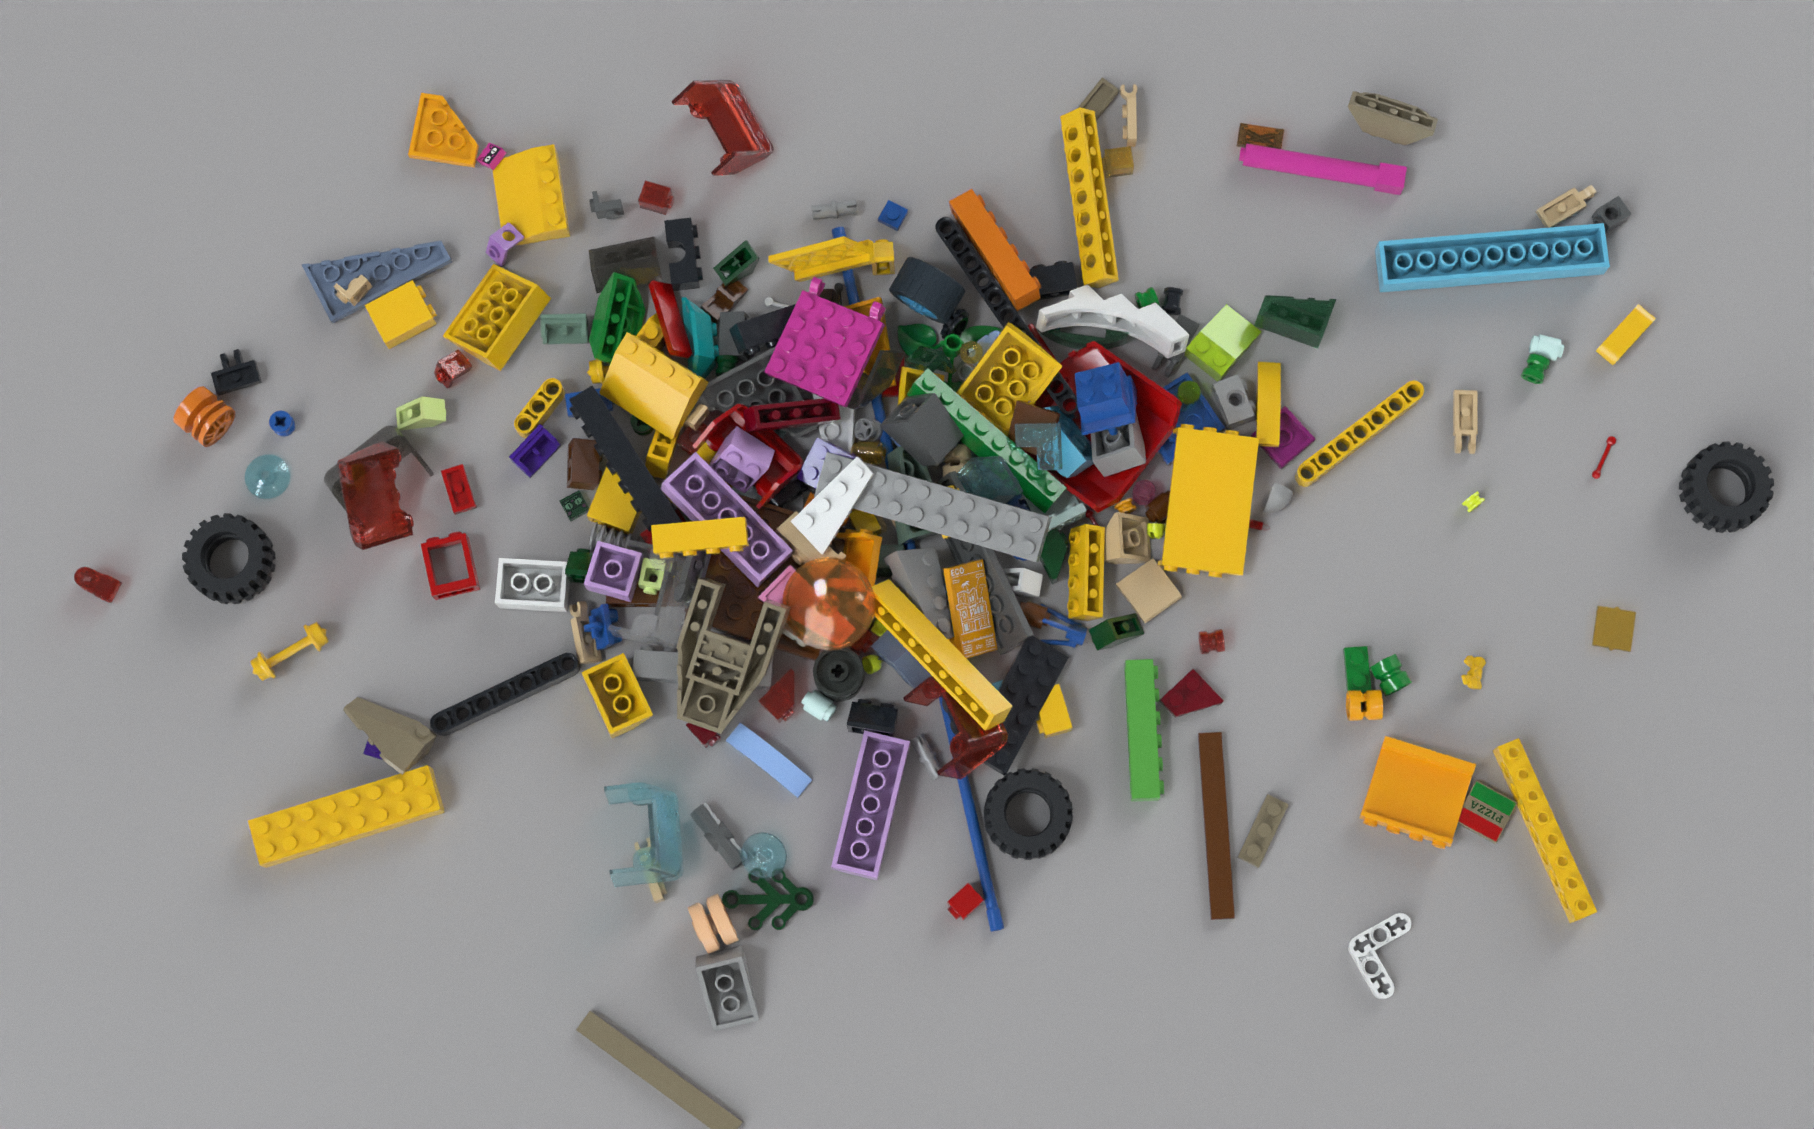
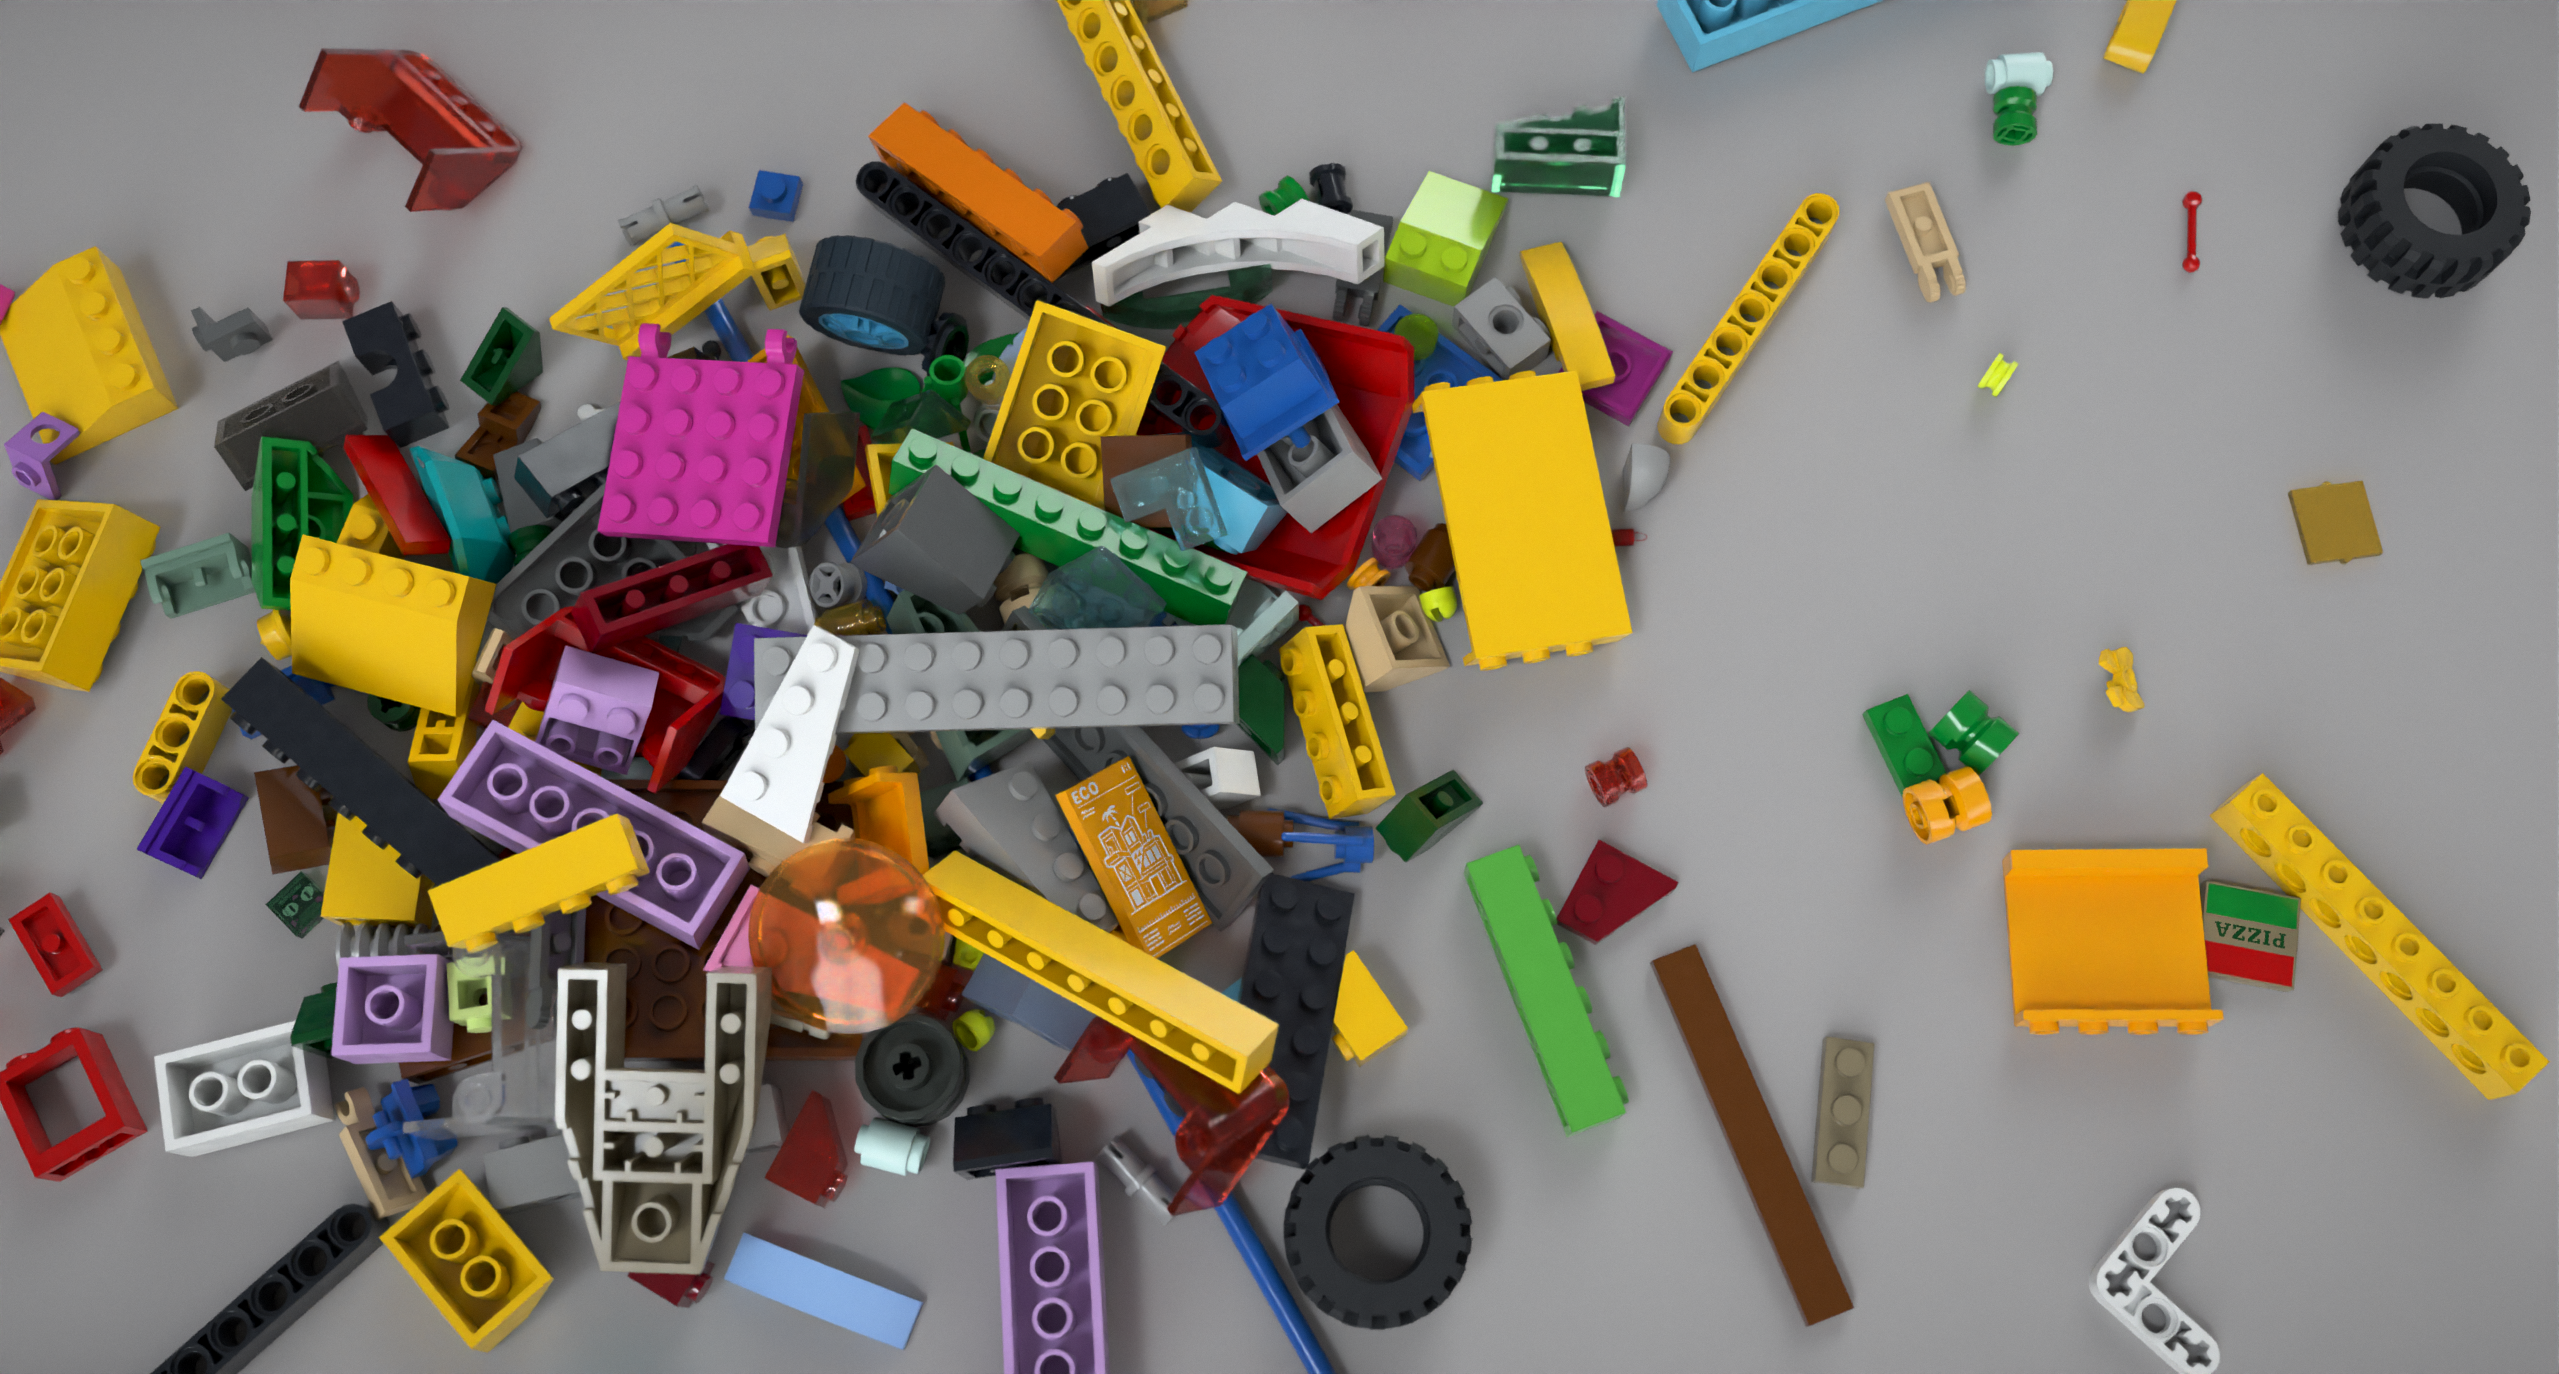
camera: 20 degrees left, 5 degrees down
(1149, 590) = (1464, 719): tan slope -> none

